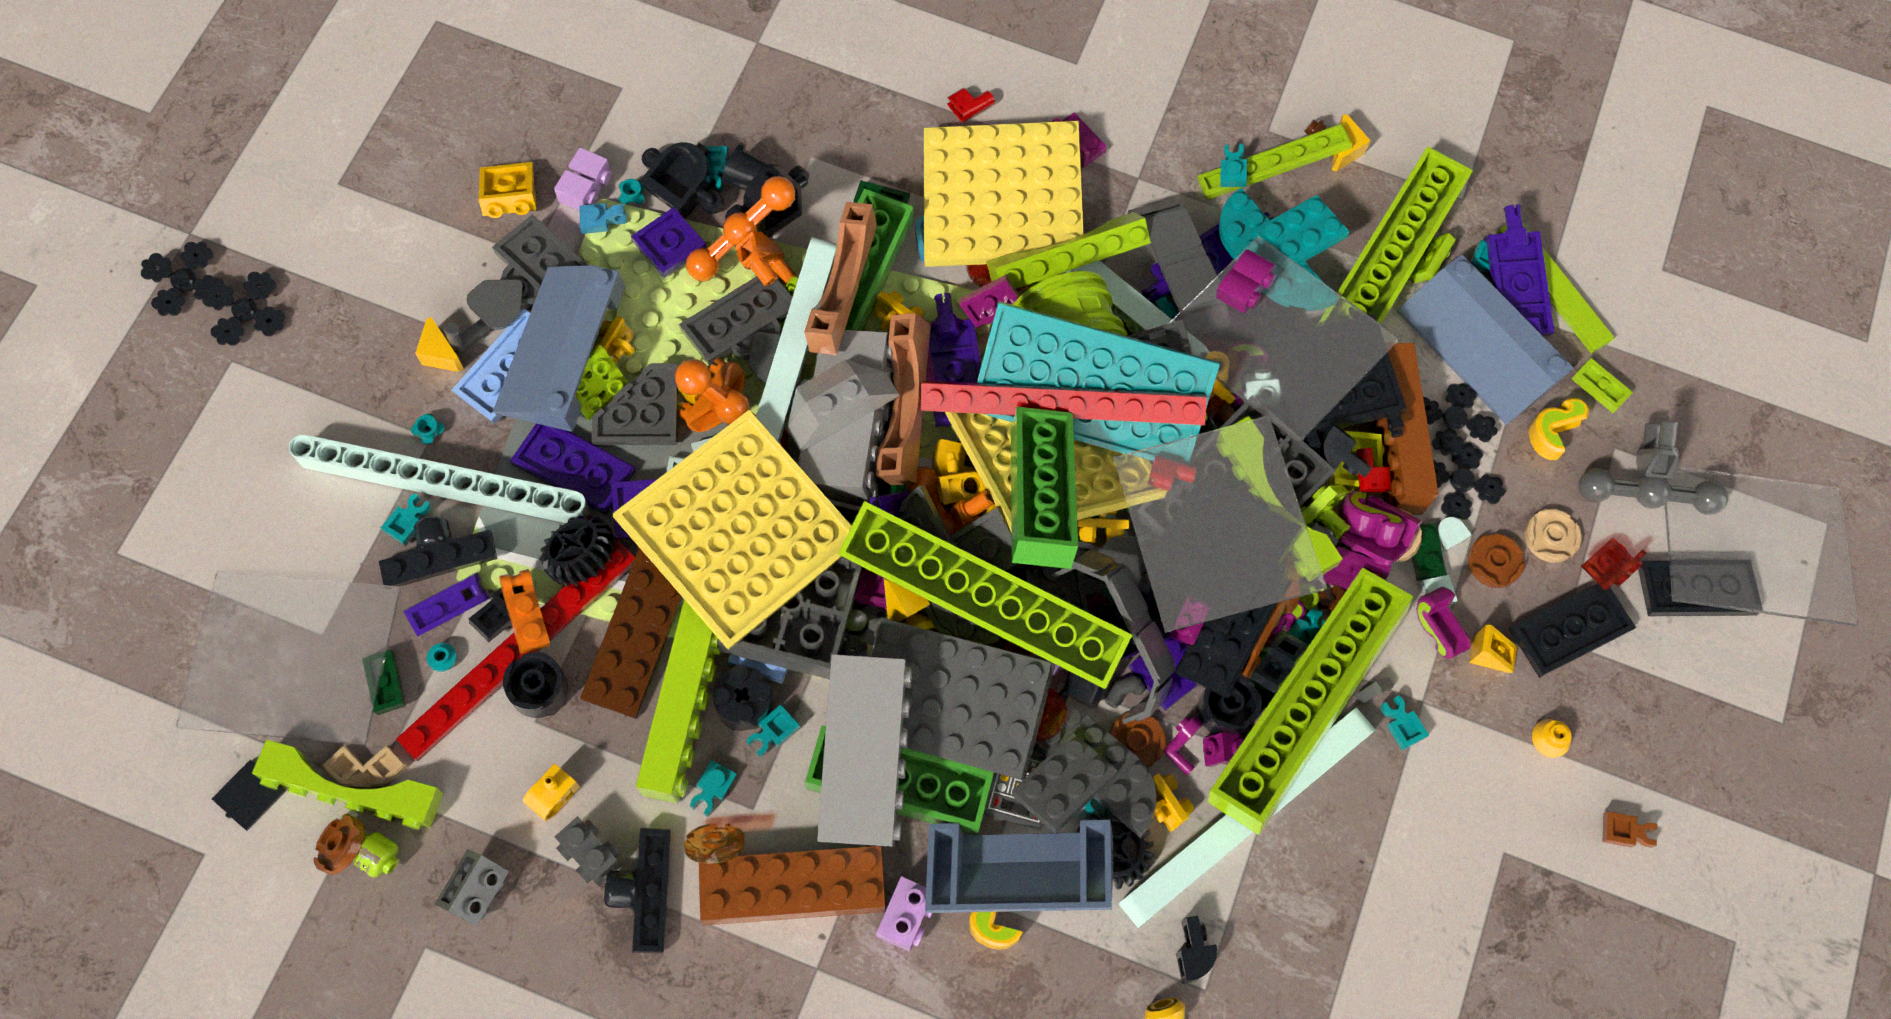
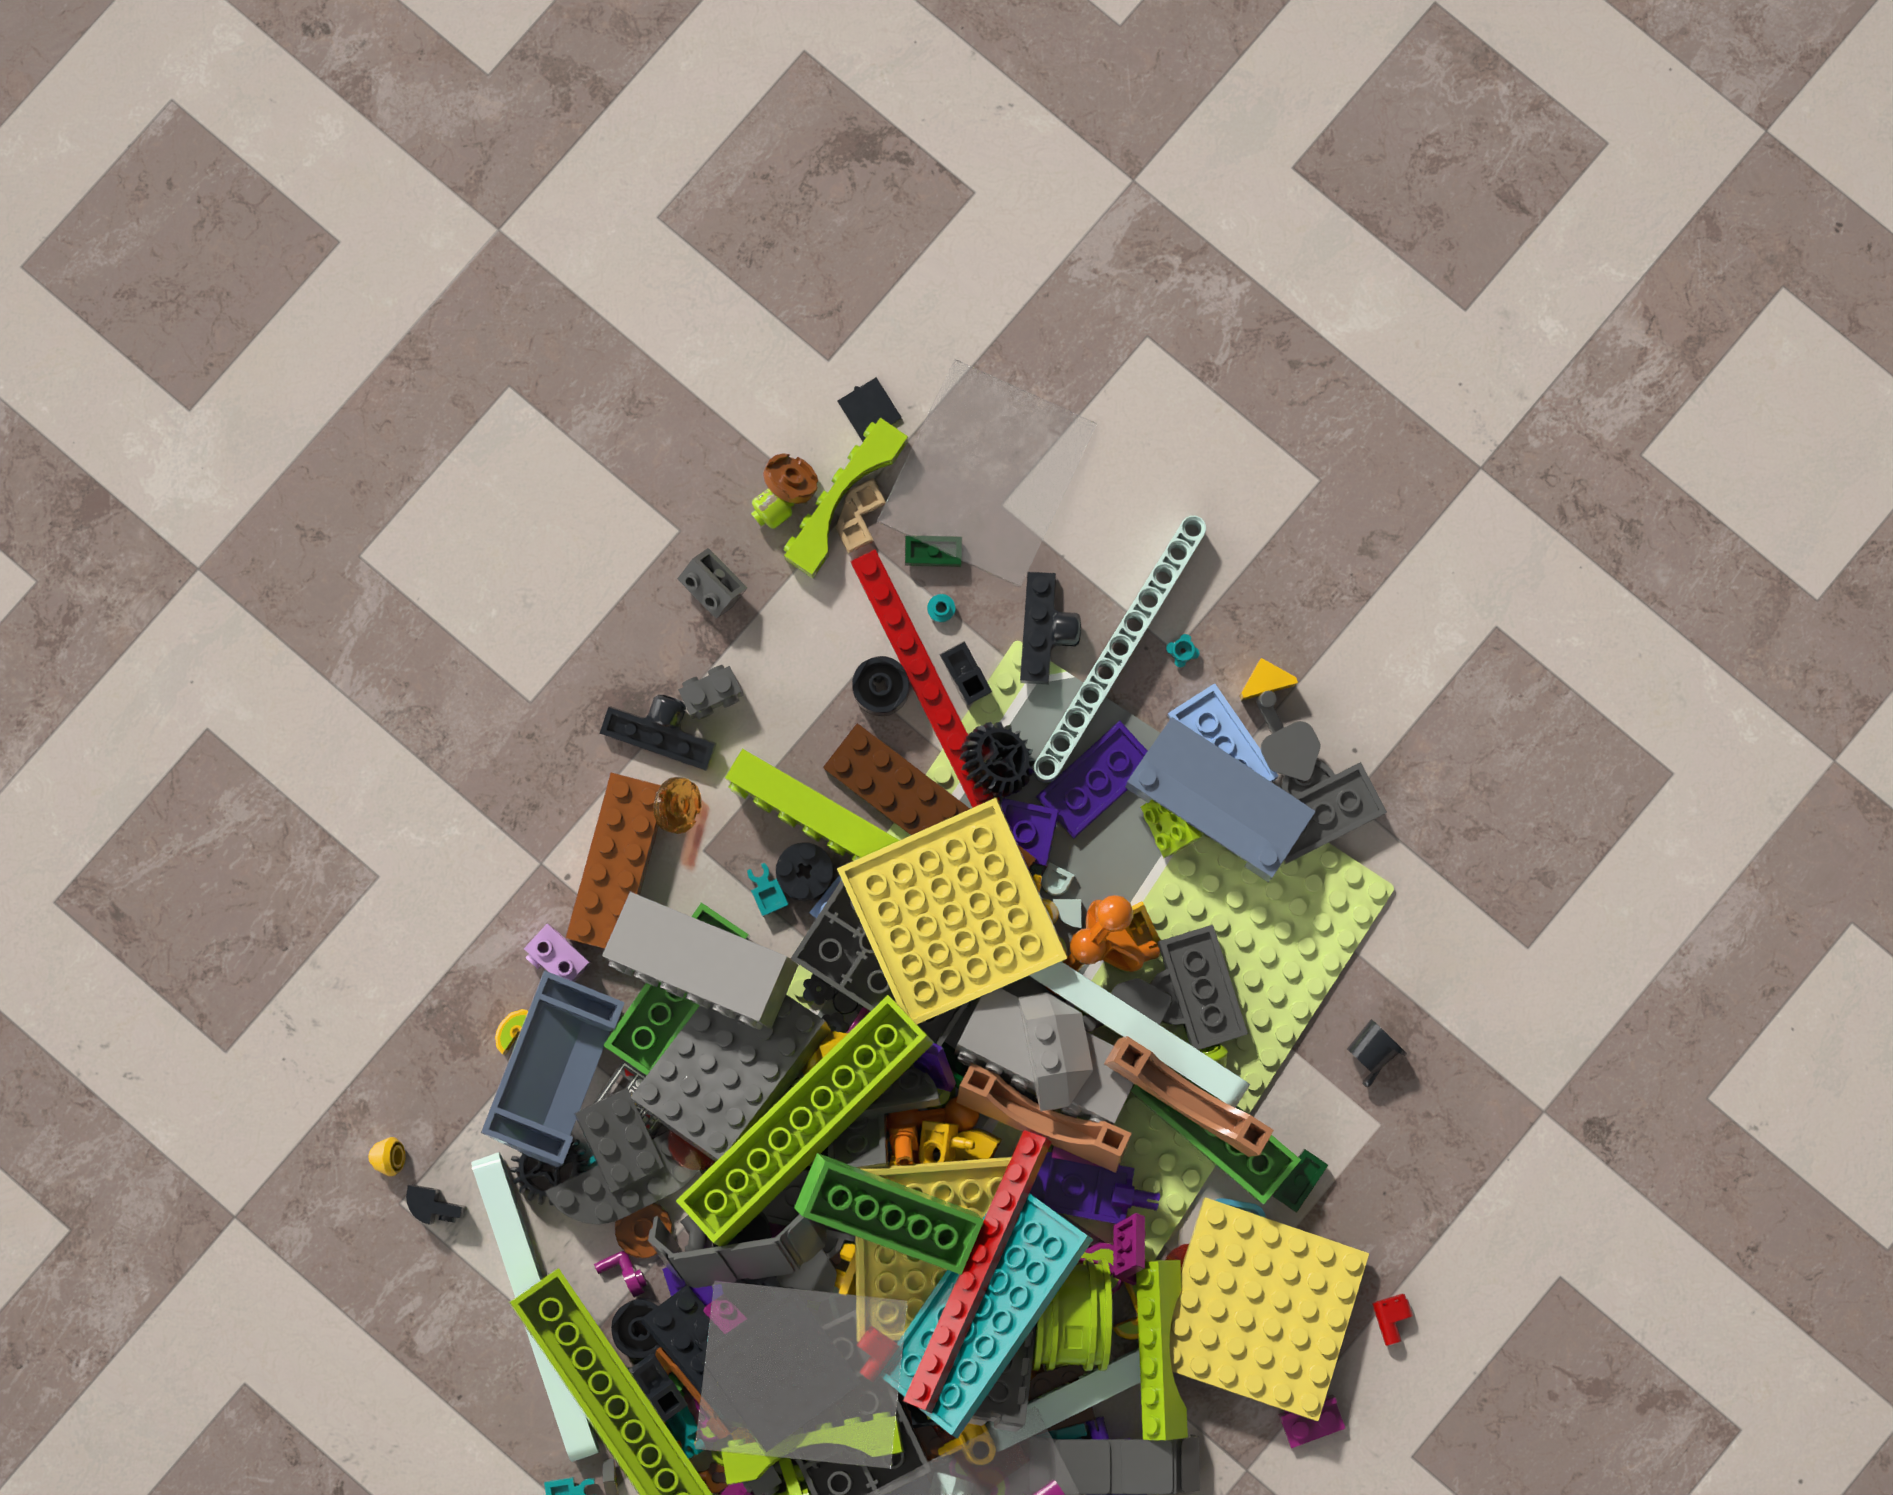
camera: 115 degrees right, 15 degrees up
(181, 279) = (1425, 451): black plant -> none
(243, 308) = (1371, 503): black plant -> none
(402, 521) = (1088, 605): teal plate -> none
(445, 604) = (990, 625): dark purple plate -> none
(507, 189) = (1430, 795): yellow plate -> none
(524, 612) = (951, 694): orange plate -> none
(550, 792) = (777, 674): yellow piece -> none
(586, 182) = (1416, 876): lavender piece -> none
(596, 217) = (1366, 876): dark azure plate -> none
(616, 338) = (1212, 857): yellow hips -> none
(628, 186) = (1398, 917): teal plate -> none
(641, 410) = (1131, 862): dark grey plate -> none
(667, 241) = (1312, 942): dark purple plate -> none
(681, 178) = (1386, 976): black piece -> none
(714, 784) = (736, 823): teal plate -> none
(718, 158) = (1398, 1018): teal plate -> none
(753, 248) = (1267, 1023): orange connector -> none
(775, 219) = (1323, 1060): black piece -> none
(890, 305) = (1153, 1145): yellow hips -> none
(1167, 807) = (569, 1229): yellow hips -> none
(1221, 748) = (603, 1306): magenta bracket -> none

